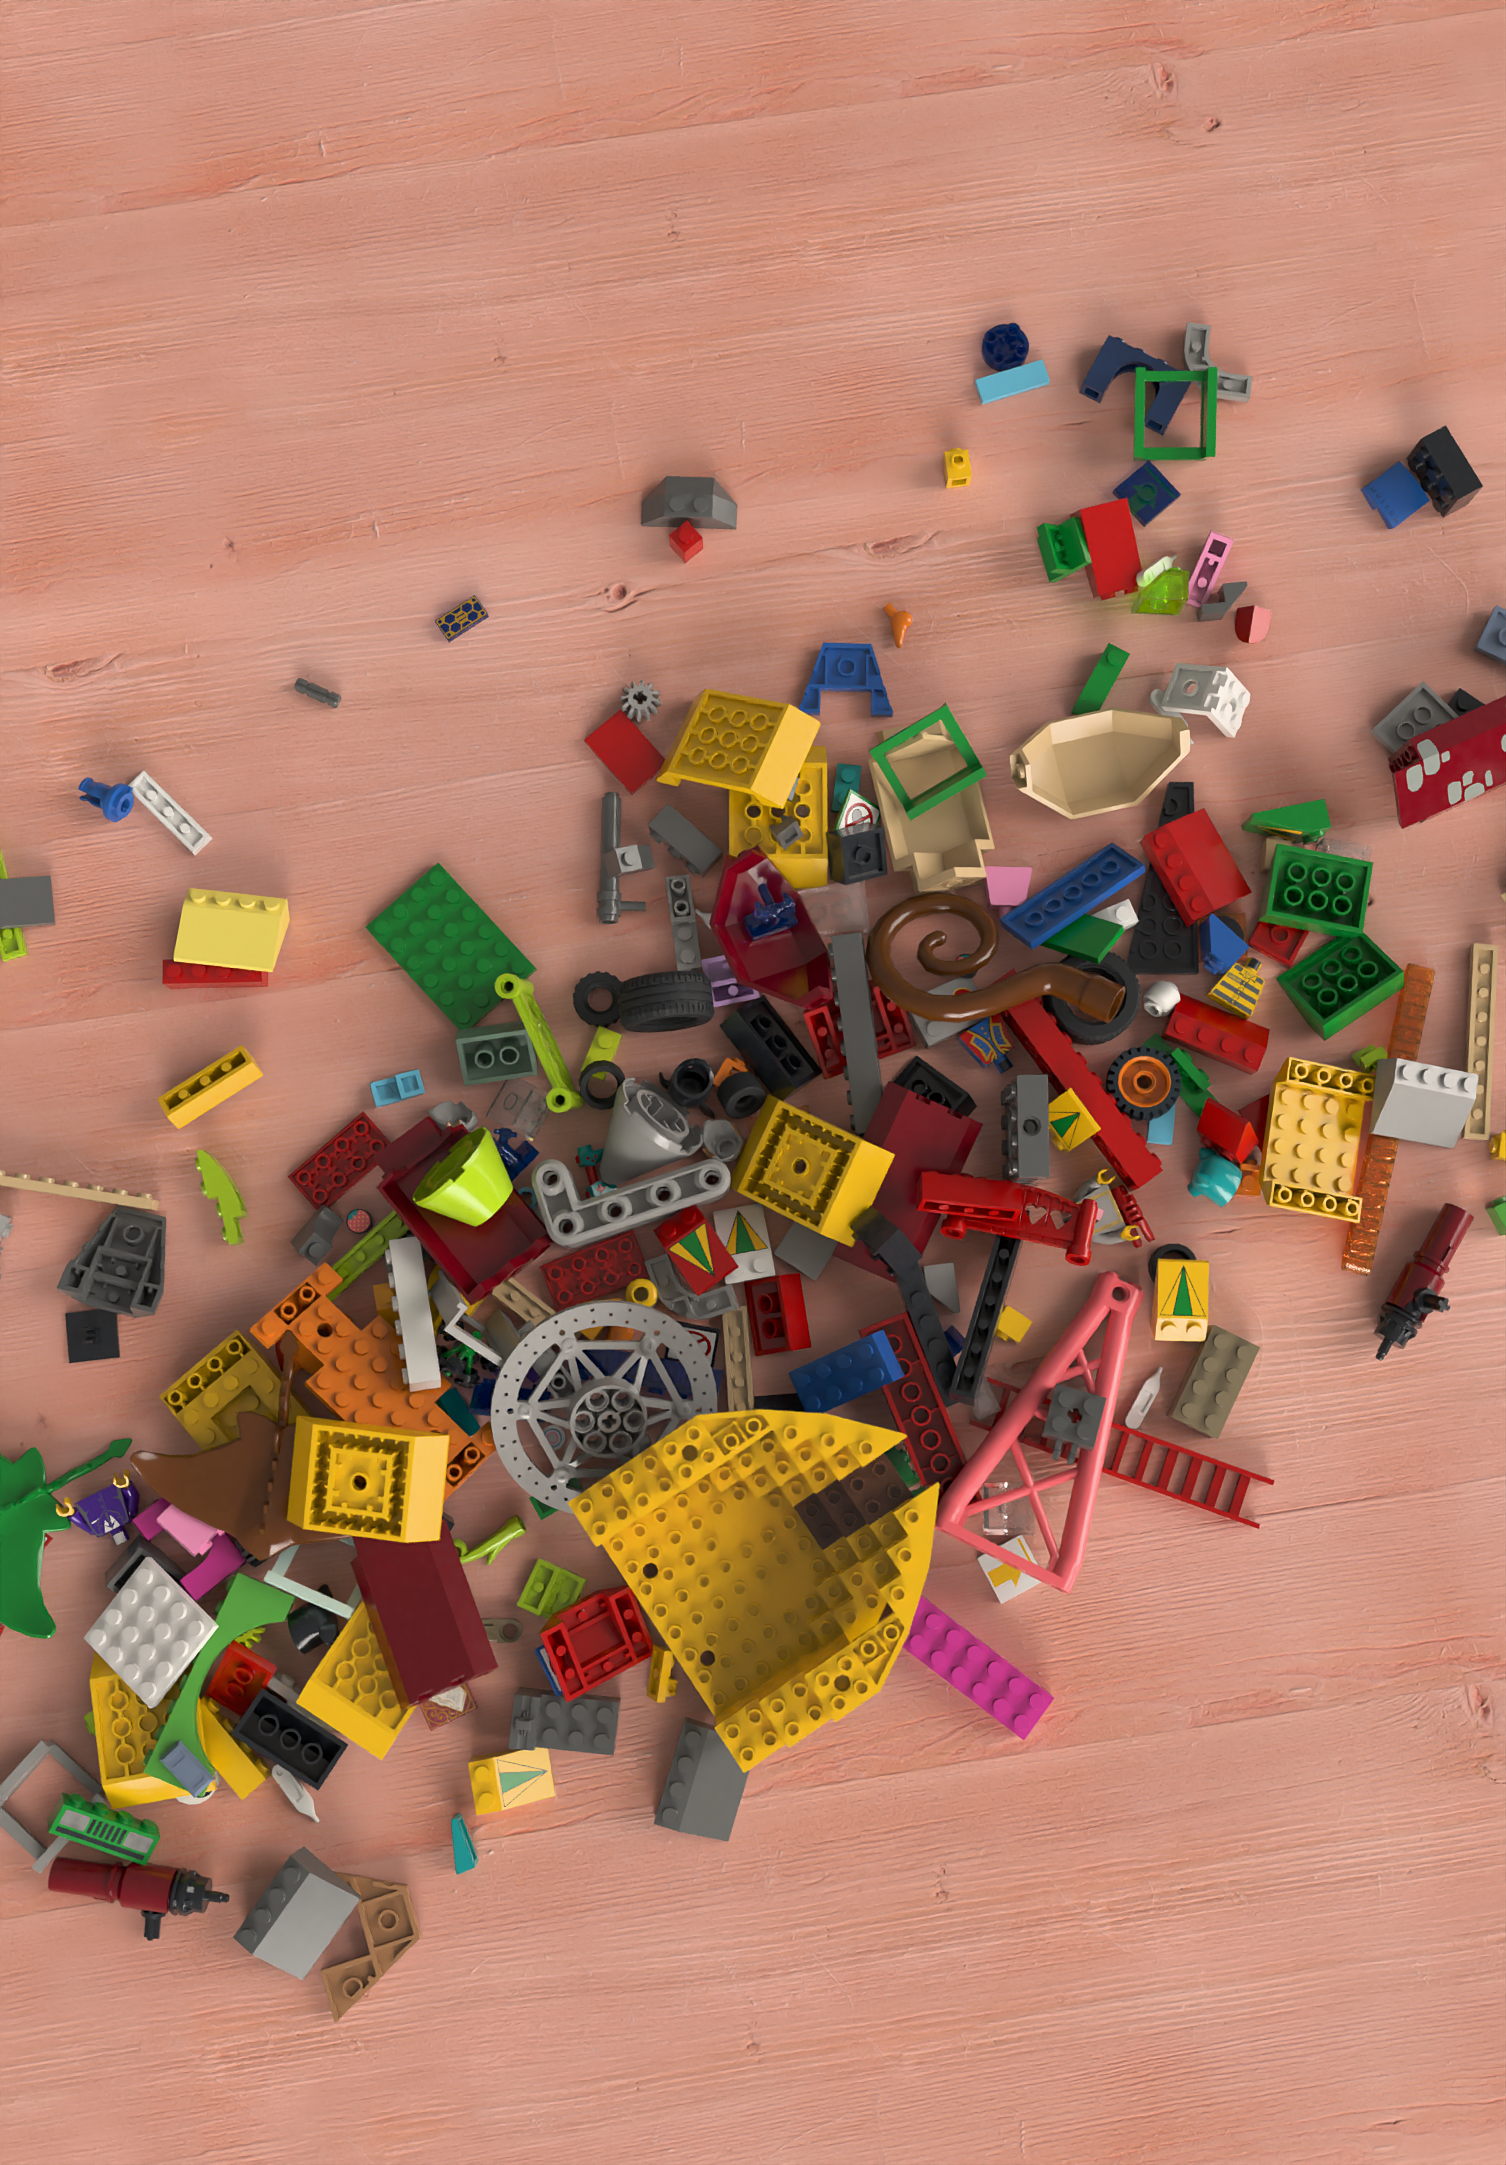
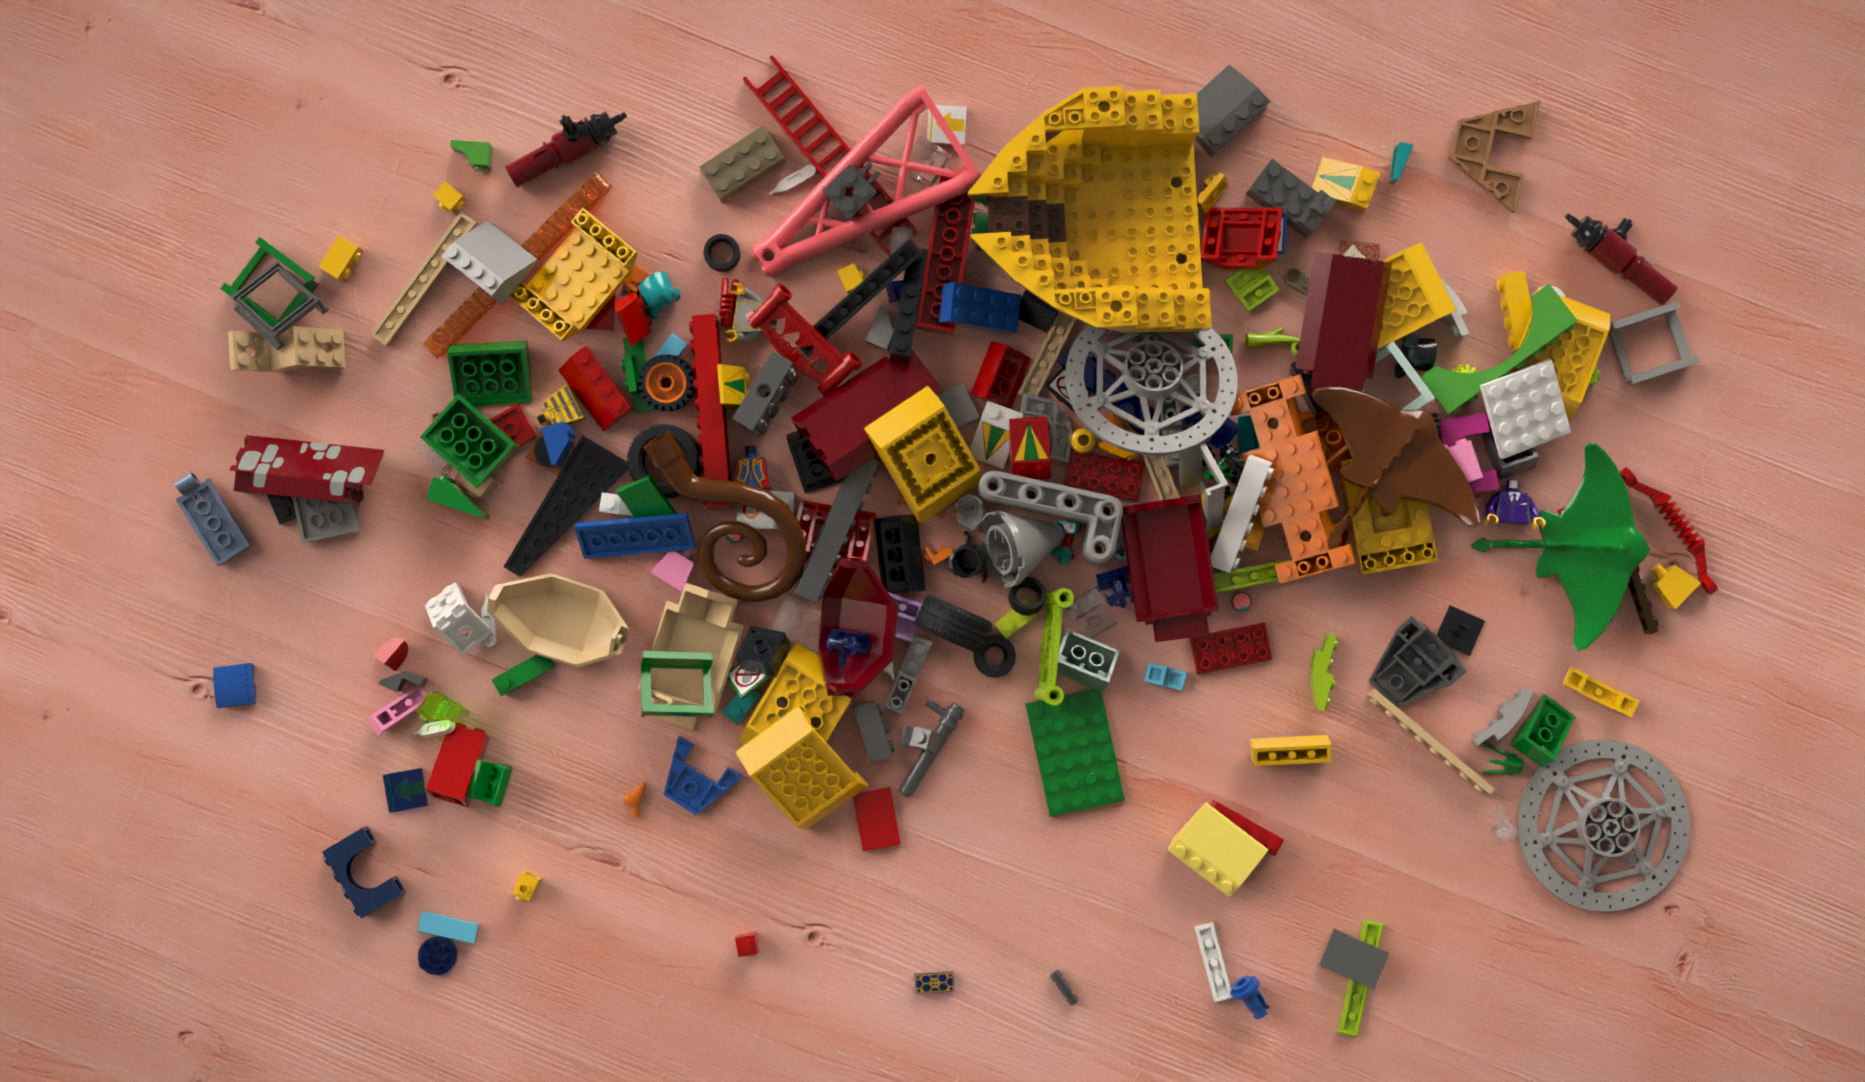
camera: 150 degrees left, 5 degrees up
(103, 1828) = (1622, 304): green brick -> none
(187, 1768) = (1548, 306): sand blue tile -> none
(240, 1678) = (1483, 346): red plate -> none
(289, 1739) = (1473, 290): black slope -> none
(295, 1791) = (1487, 258): white piece -> none
(297, 1915) = (1527, 178): slope -> none
(317, 1234) = (1276, 607): dark grey arch -> none
(401, 1472) = (1307, 413): yellow slope -> none
(450, 1114) = (1139, 633): light grey hair -> none
(468, 1182) = (1157, 578): lime cone -> none
(649, 703) = (852, 848): light grey gear -> none
(689, 499) = (728, 972): dark grey wedge -> none
(741, 1095) = (938, 534): black tyre -> none
(786, 832) = (802, 692): flat silver tile -> none
(885, 1242) = (905, 374): black container -> none
(968, 1196) = (830, 373): red brick -> none
(976, 1669) = (1006, 73): dark pink brick -> none
(1161, 998) = (618, 432): white head -> none
(1180, 1300) = (731, 226): yellow slope -> none
(1195, 866) = (539, 507): red slope -> none
(1196, 358) = (310, 853): light grey plate -> none
(1208, 415) = (343, 796): green piece -> none
(1368, 1058) = (506, 311): lime bracket -> none
(1444, 471) = (192, 680): black brick -> none

